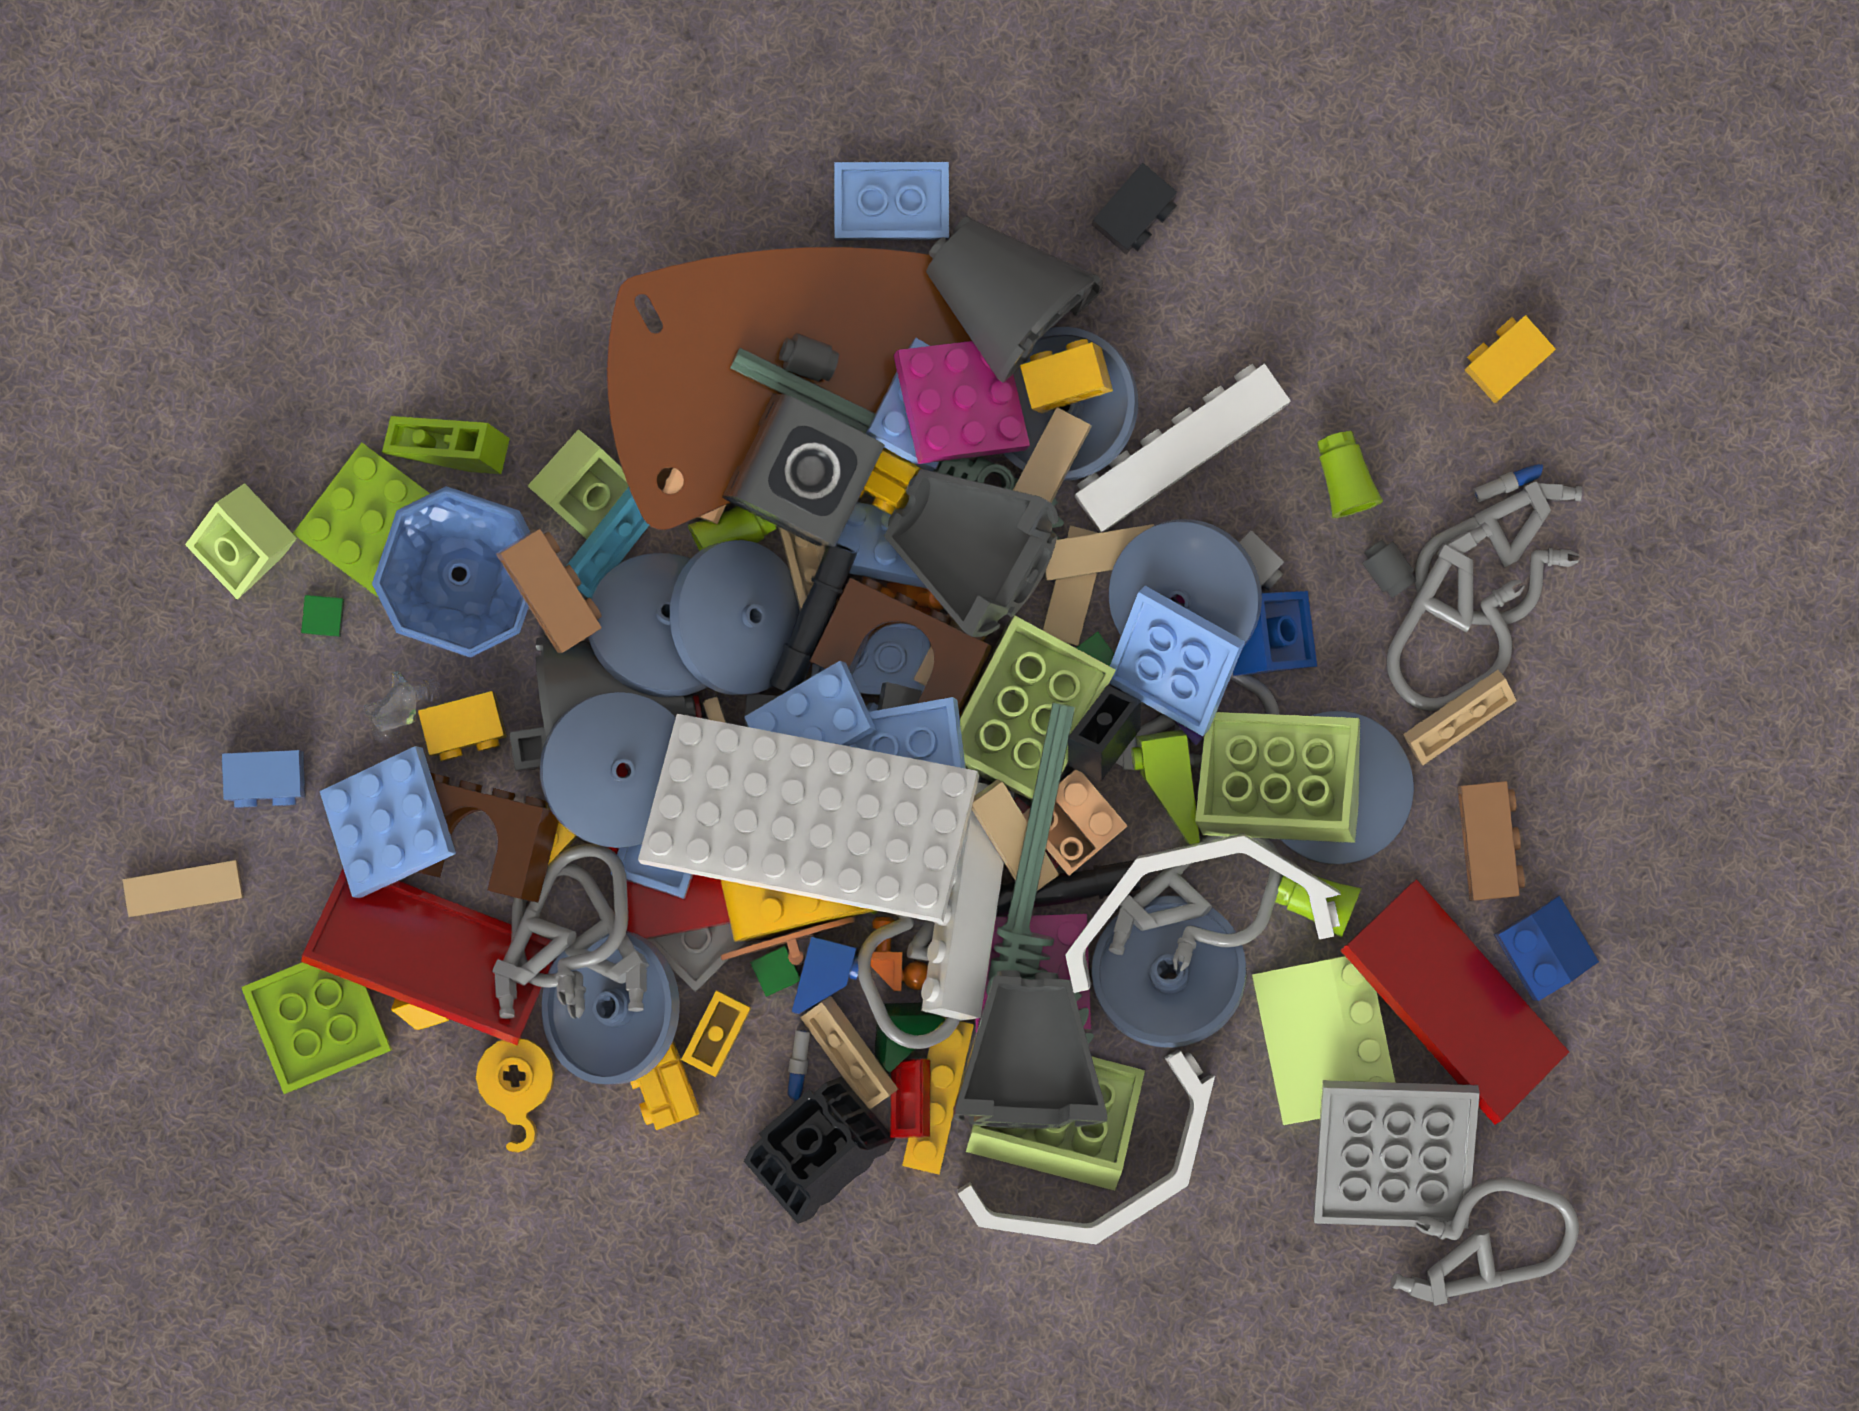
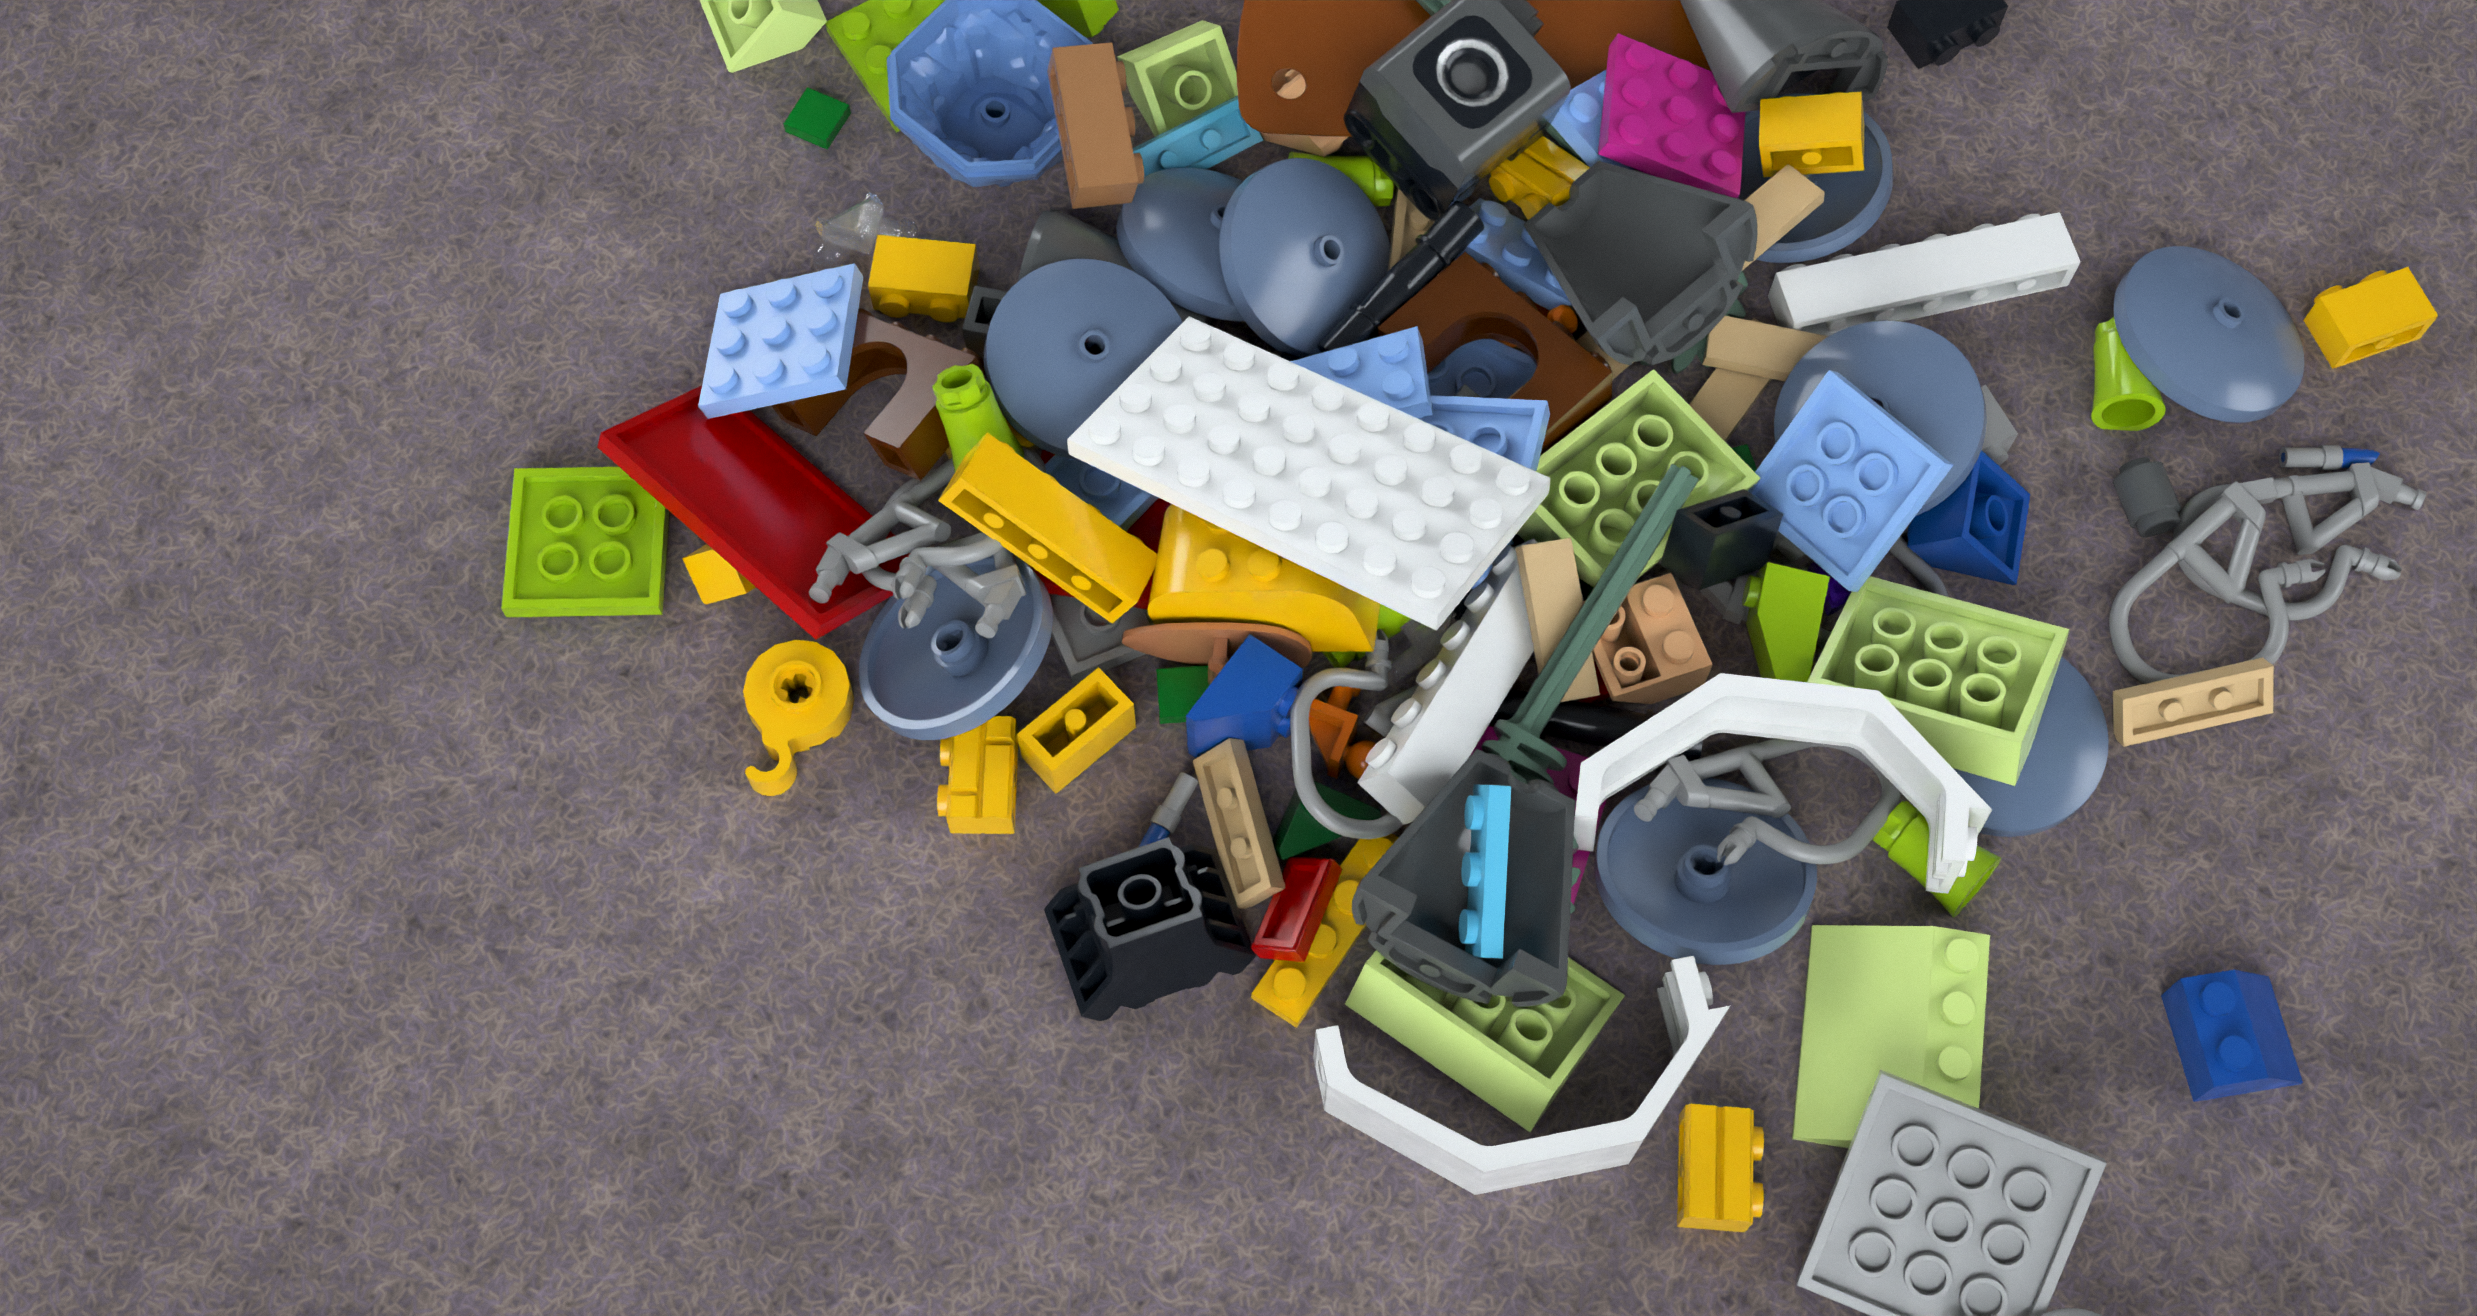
camera: 20 degrees right, 20 degrees down
(182, 888) = (506, 344): tan tile -> none
(263, 776) = (662, 252): medium blue brick -> none
(569, 861) = (969, 411): none -> lime plant
(648, 916) = (1050, 528): none -> yellow brick
(1028, 1053) = (1485, 870): none -> medium azure plate
(1241, 1167) = (1717, 1168): none -> yellow brick
(1397, 422) = (2208, 334): none -> sand blue dish
(1455, 1001) = (2092, 1051): red tile -> none
(1490, 841) = (2193, 867): medium nougat brick -> none

